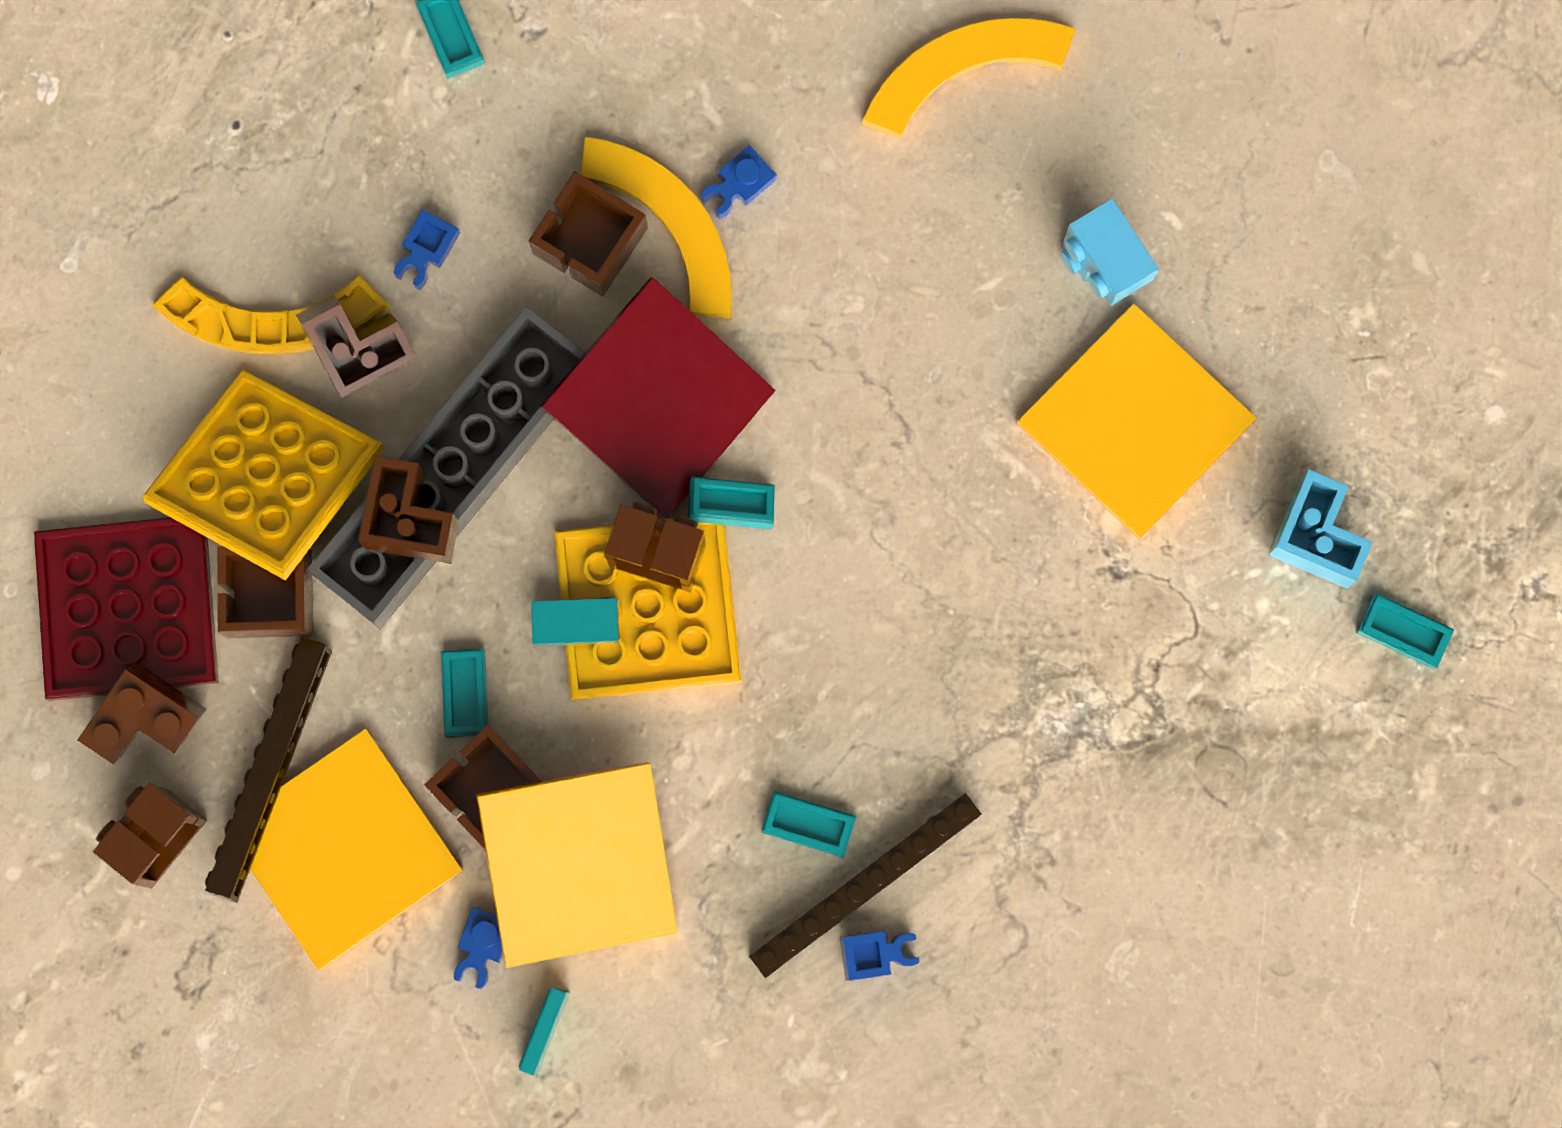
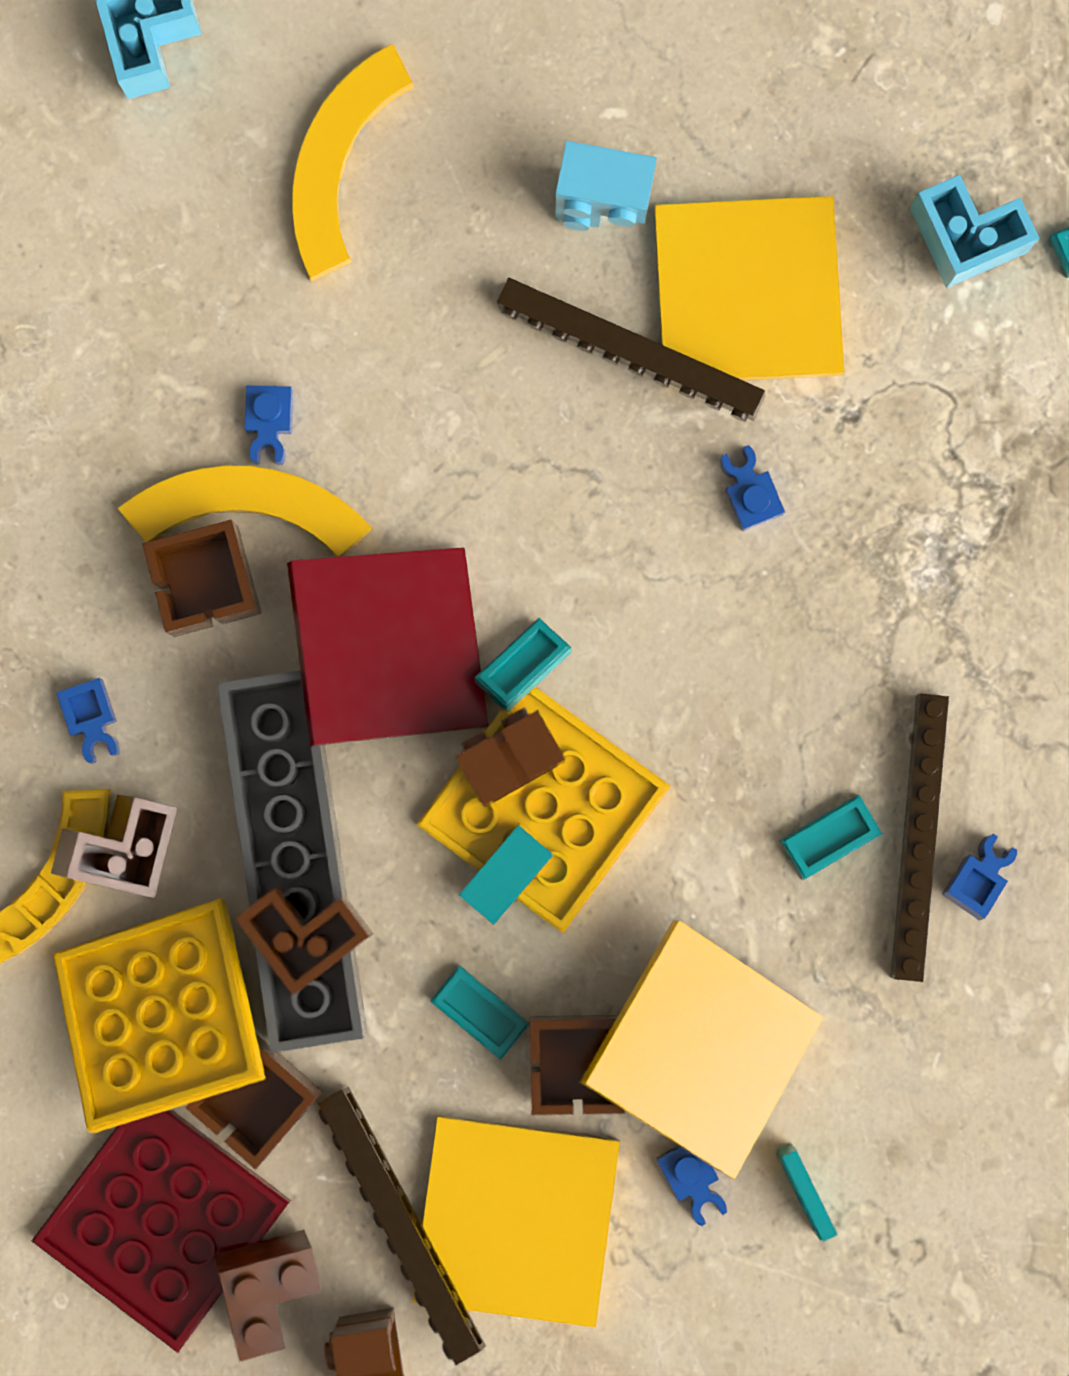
camera: 45 degrees left, 5 degrees up
(996, 553) = (753, 495): none -> blue plate
(1018, 379) = (631, 349): none -> dark brown piece

